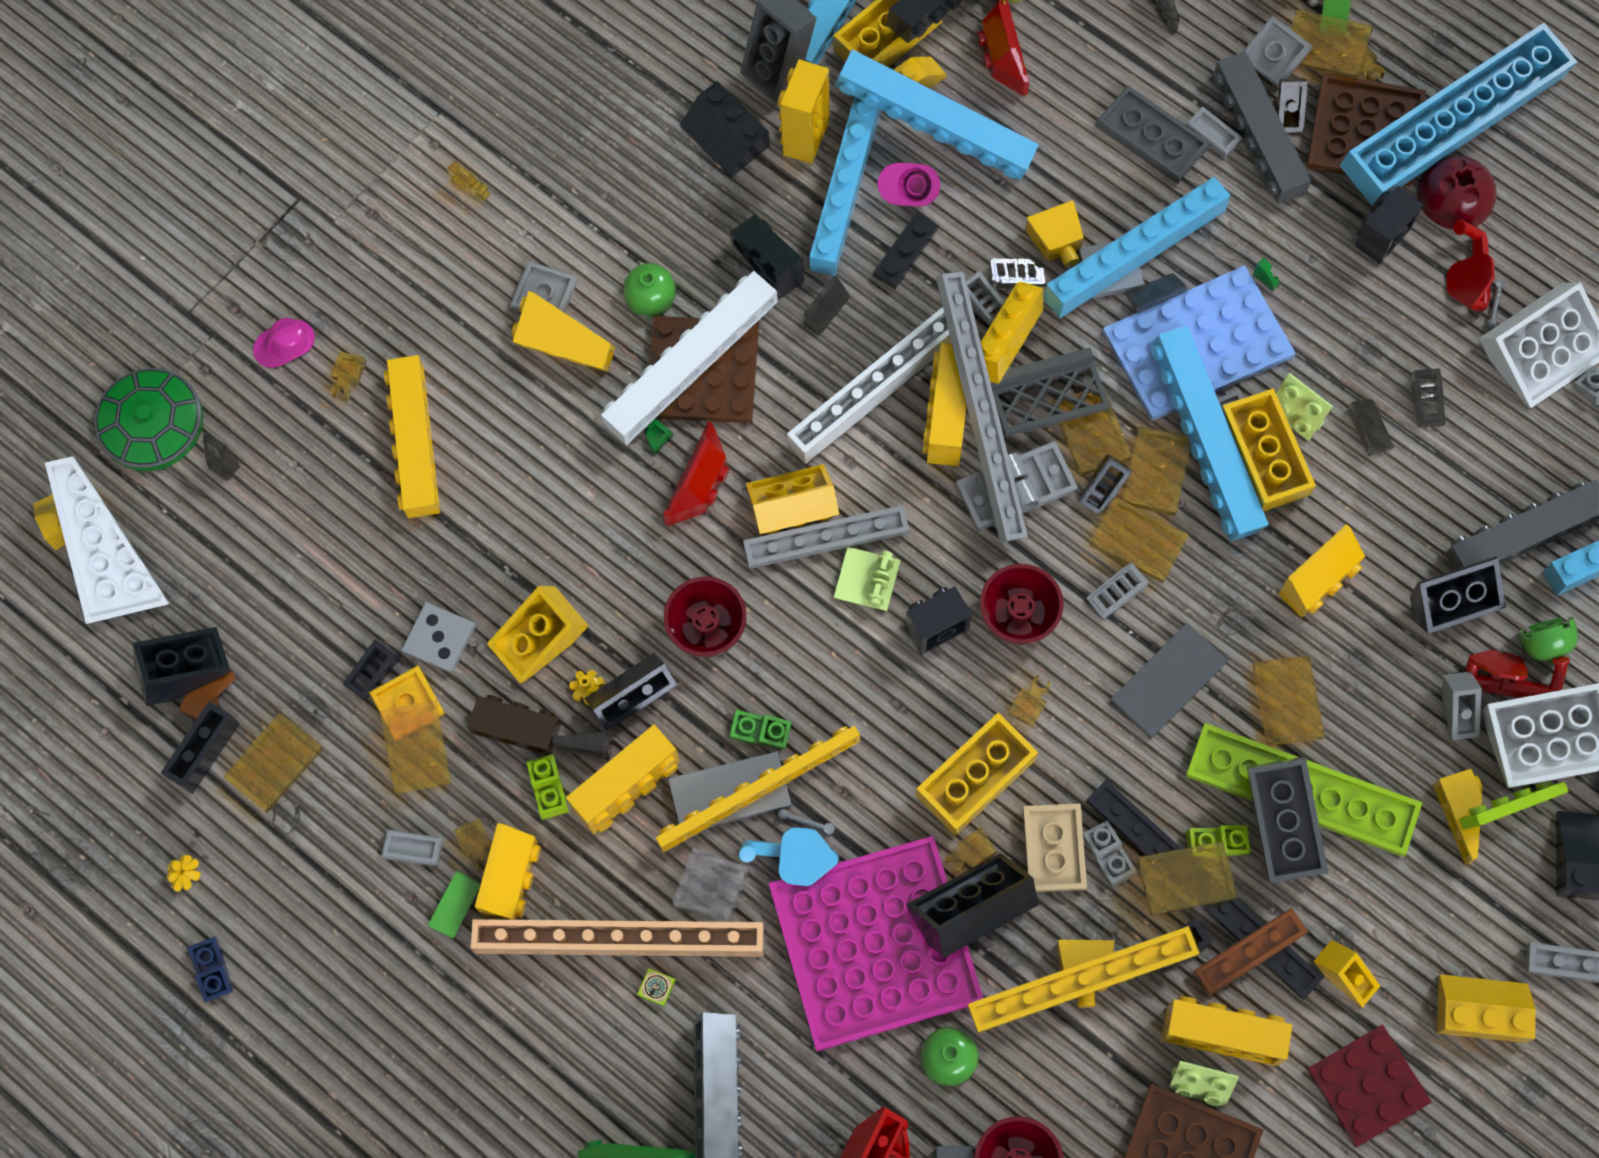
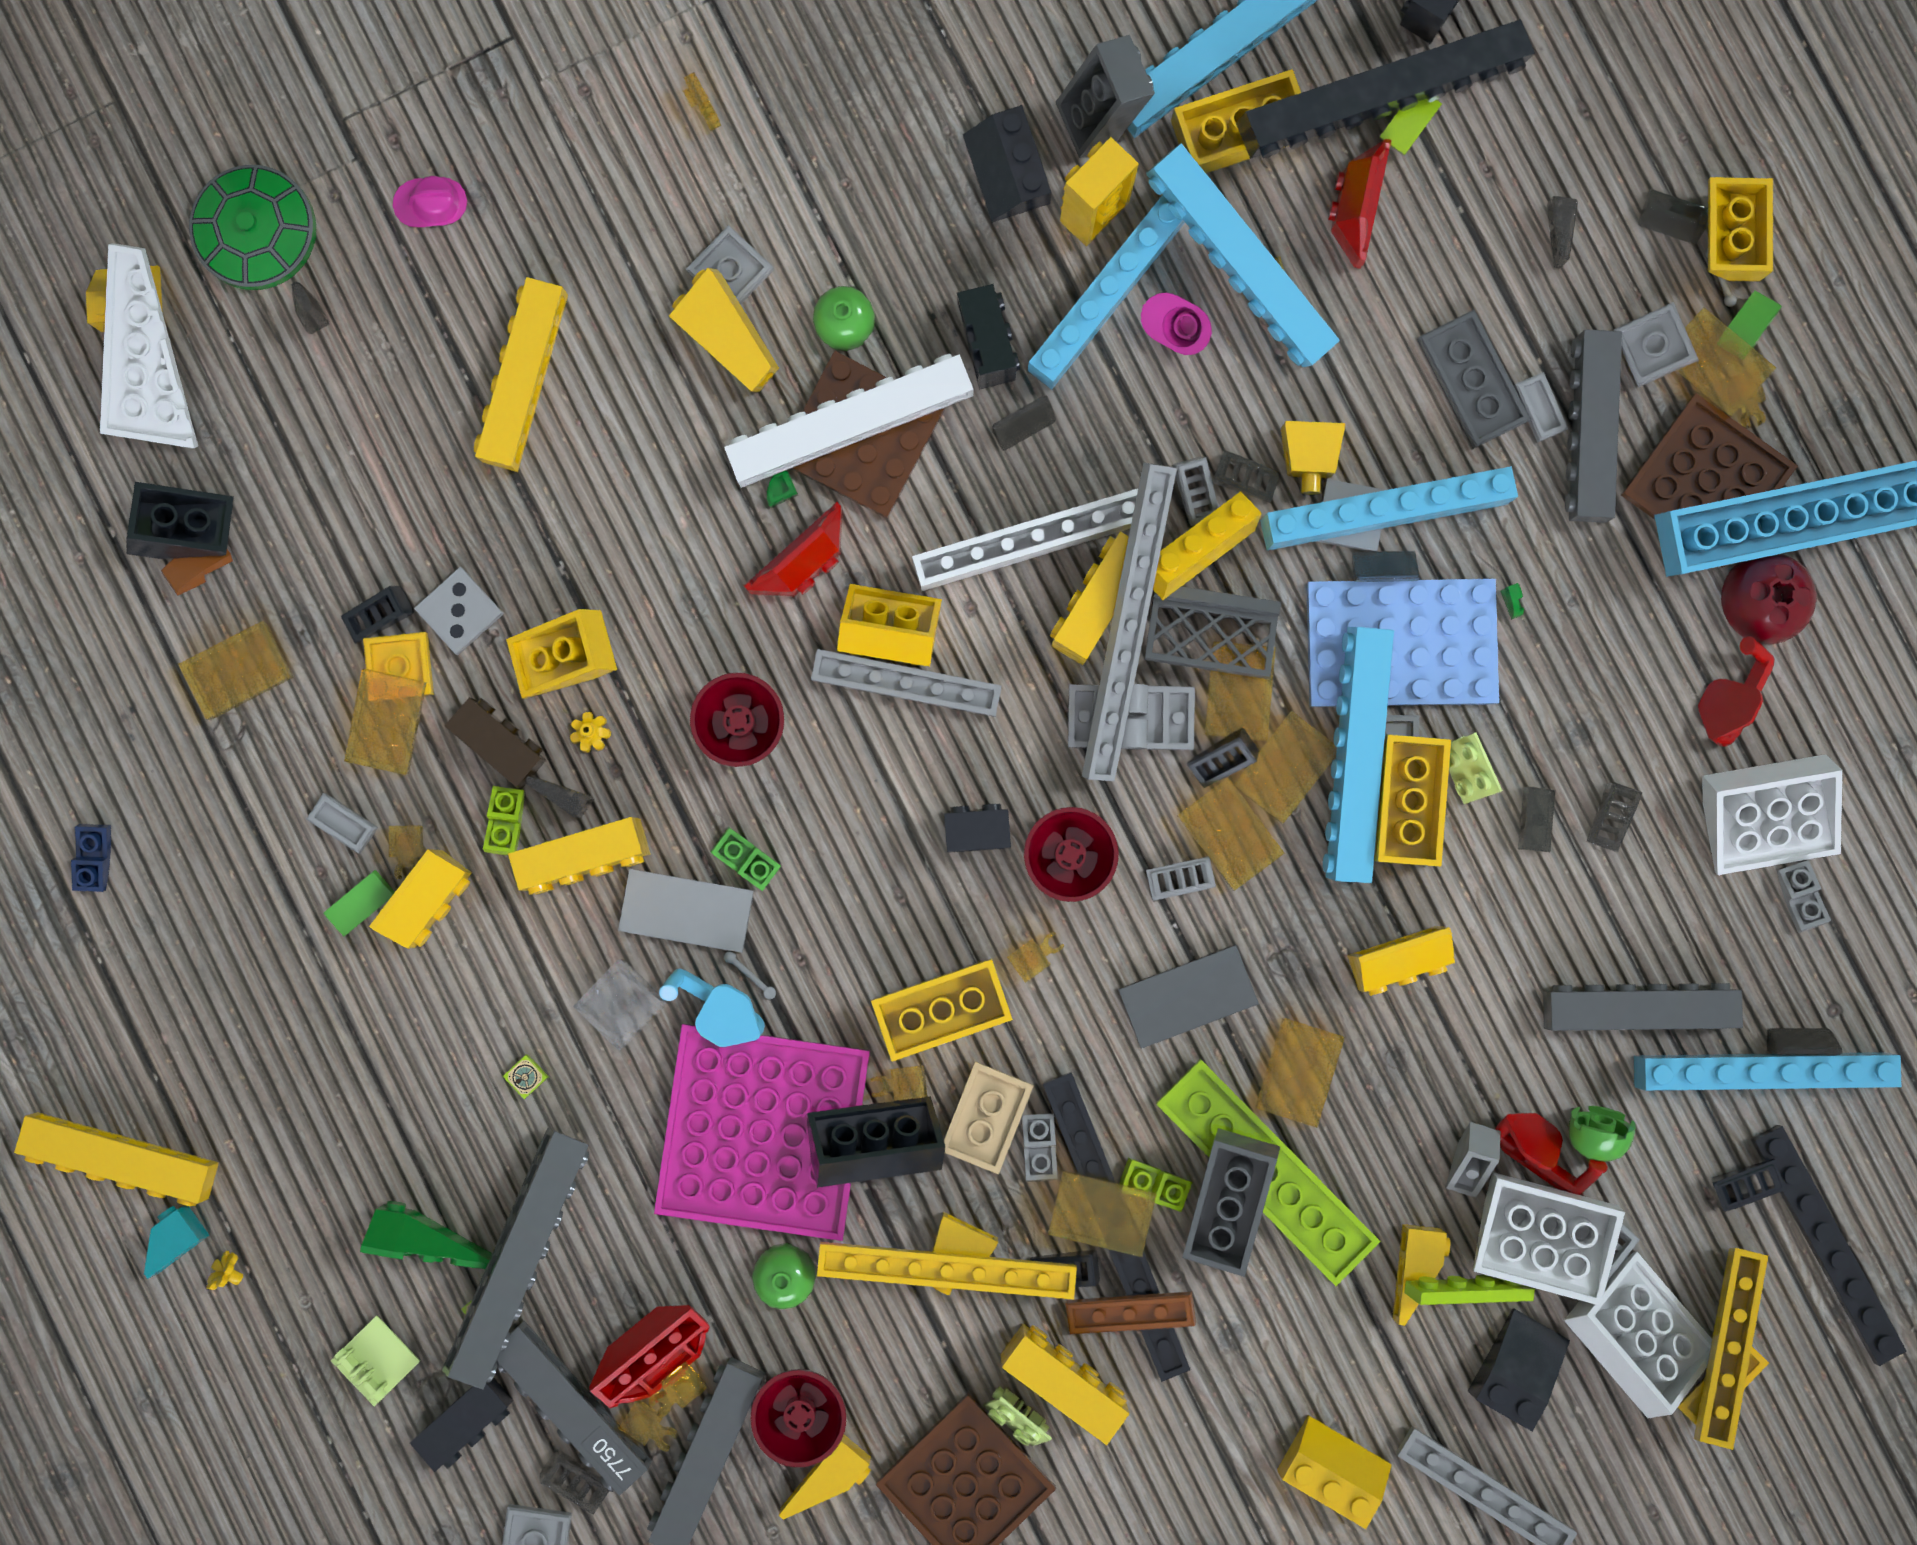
camera: 20 degrees right, 15 degrees up
(182, 872) = (99, 746): yellow plant -> none
(200, 748) = (165, 624): black brick -> none
(347, 371) = (483, 267): clear yellow plate -> none
(618, 938) = (505, 1013): light nougat brick -> none
(630, 691) = (628, 762): black brick -> none
(748, 793) = (699, 924): yellow plate -> none
(867, 578) = (928, 747): yellowish green hinge -> none
(905, 250) = (1140, 395): black plate -> none
(922, 70) = (1251, 193): yellow slope -> none
(1292, 103) = (1641, 415): slope -> none
(1347, 972) = (1216, 1374): yellow slope -> none
(1369, 1085) = (1182, 1491): dark red plate -> none
(1388, 224) = (1677, 604): black brick -> none
(1458, 596) = (1528, 1052): black slope -> none
(1499, 286) = (1759, 723): light grey hinge -> none

